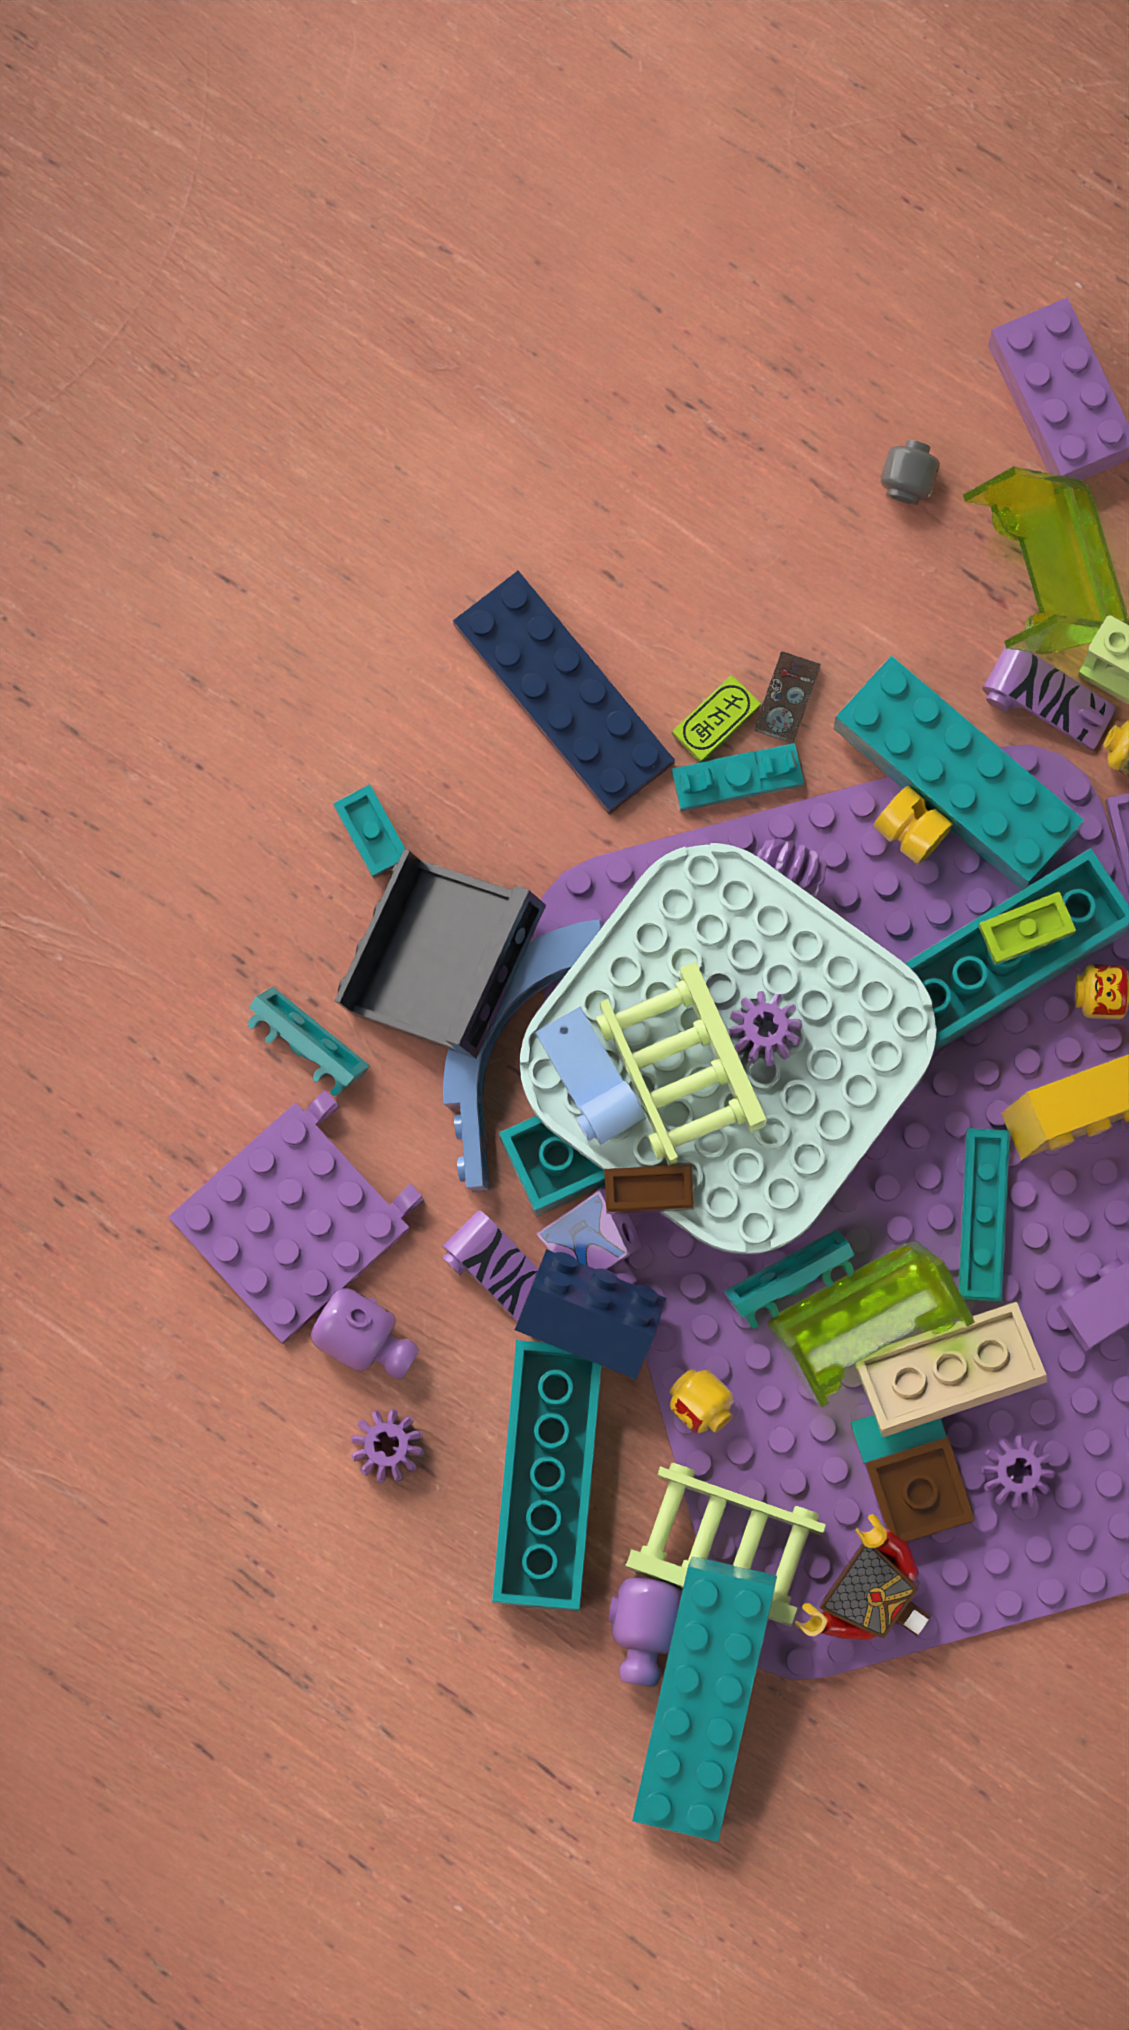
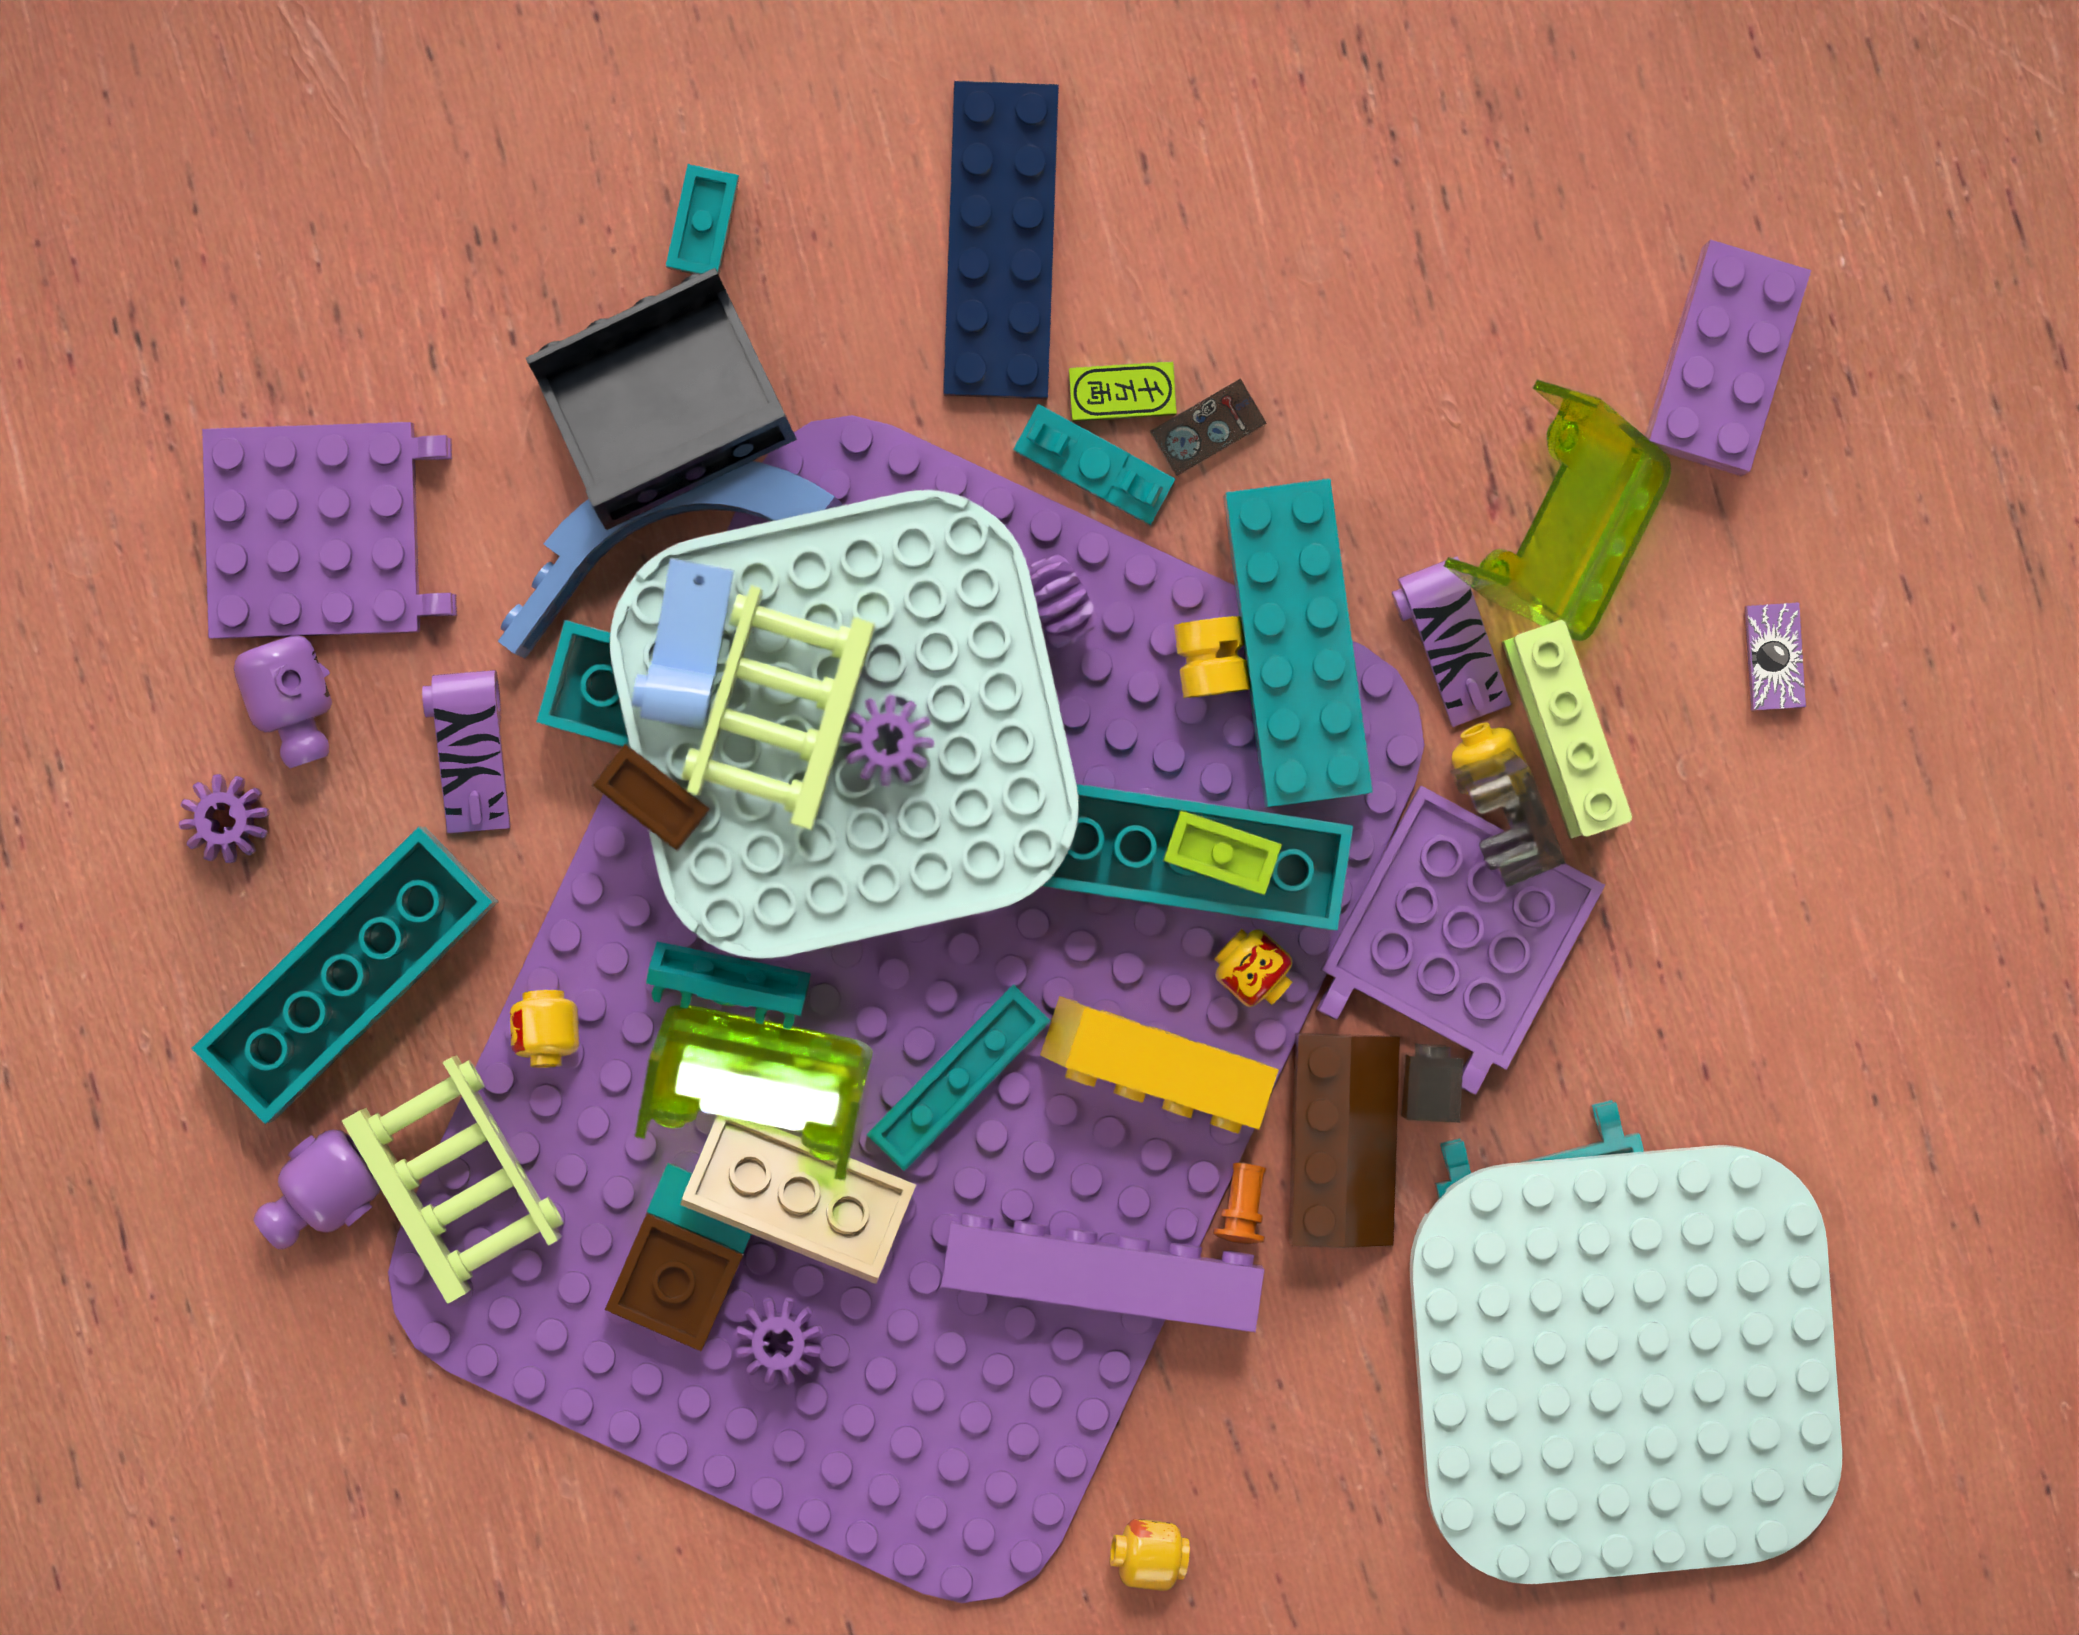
camera: 35 degrees right, 10 degrees up
(307, 1039) = (474, 370): teal plate -> none
(591, 1313) = (506, 862): dark blue brick -> none
(594, 1236) = (563, 795): torso -> none
(704, 1698) = (310, 1302): teal brick -> none
(871, 1591) = (545, 1335): torso -> none
(910, 472) = (1513, 310): dark grey head -> none

